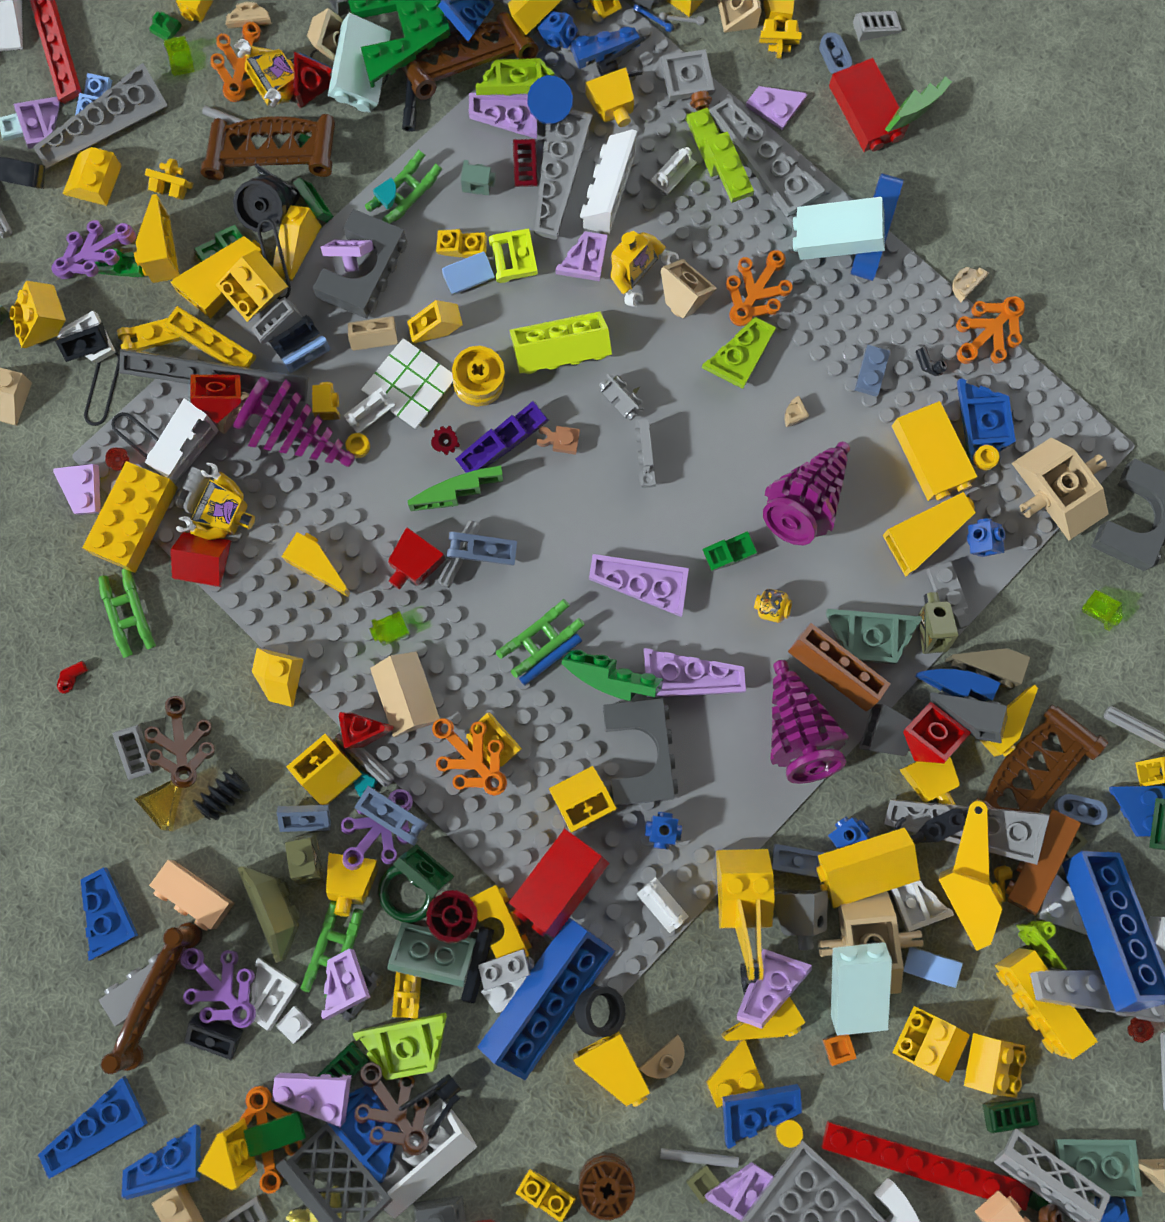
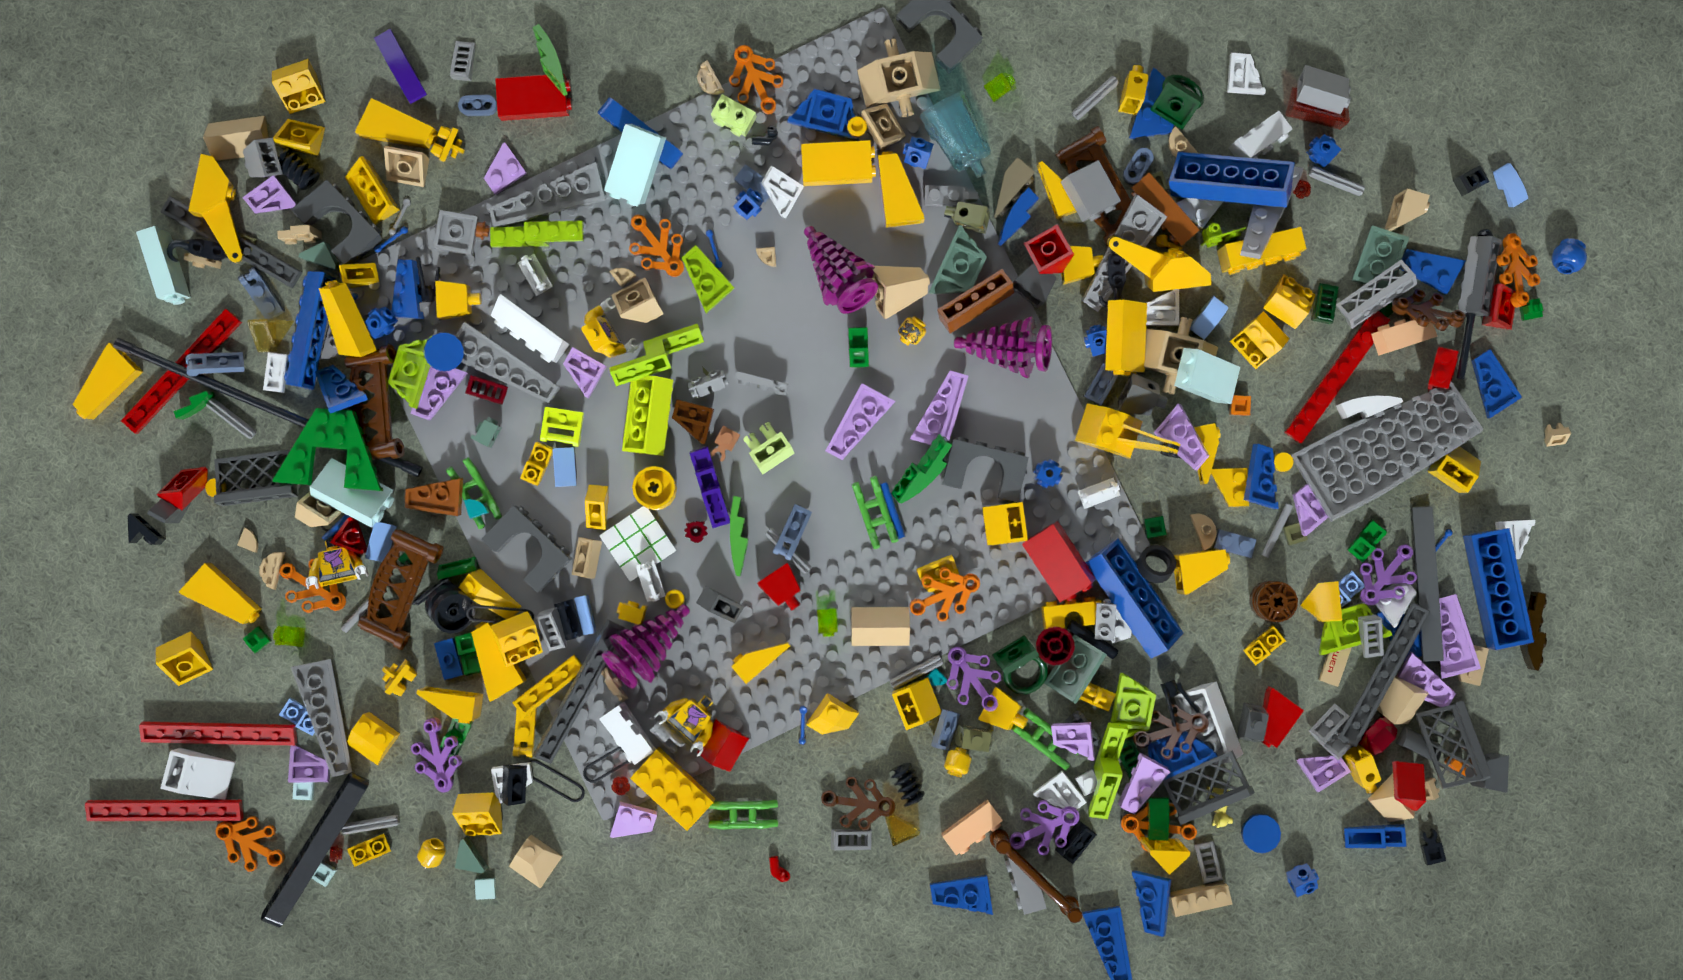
camera: 65 degrees left, 10 degrees up
(203, 229) = (448, 658): none -> blue plate
(215, 394) = (600, 693): red slope -> none
(267, 848) = (957, 762): none -> yellow head
(272, 637) = (803, 710): none -> blue hinge
(273, 909) = (1002, 772): olive wedge -> none
(314, 108) = (380, 541): none -> light blue slope
(316, 1043) = (1108, 770): none -> lime bracket
(348, 250) = (513, 554): lavender tile -> none
(361, 731) = (896, 667): red slope -> none
(367, 496) = (719, 604): none -> dark grey slope
(385, 153) = (437, 497): none -> dark orange wing
(390, 815) = (967, 666): sand blue plate -> none
(568, 491) = (772, 451): none -> yellowish green brick
(575, 394) = (694, 419): none -> reddish brown wing
(633, 325) = (656, 354): none -> lime bracket
(646, 993) = (1154, 526): none -> dark green plate
(662, 1107) = (1234, 543): none -> sand blue plate
(708, 263) = (622, 275): none -> tan tile
(763, 362) = (709, 233): none -> blue hinge
(818, 571) = (898, 288): none -> tan slope
(847, 367) = (745, 208): none -> blue brick
(877, 399) = (781, 190): none -> white wing
(940, 317) = (733, 115): none -> yellowish green brick
(982, 719) = (1050, 213): dark grey slope -> none
(999, 488) = (883, 126): none -> tan slope
(1027, 759) = (1091, 192): none -> light grey brick
(1032, 571) = (957, 133): none -> clear light blue torso
(1130, 850) = (1179, 143): none -> tan plate

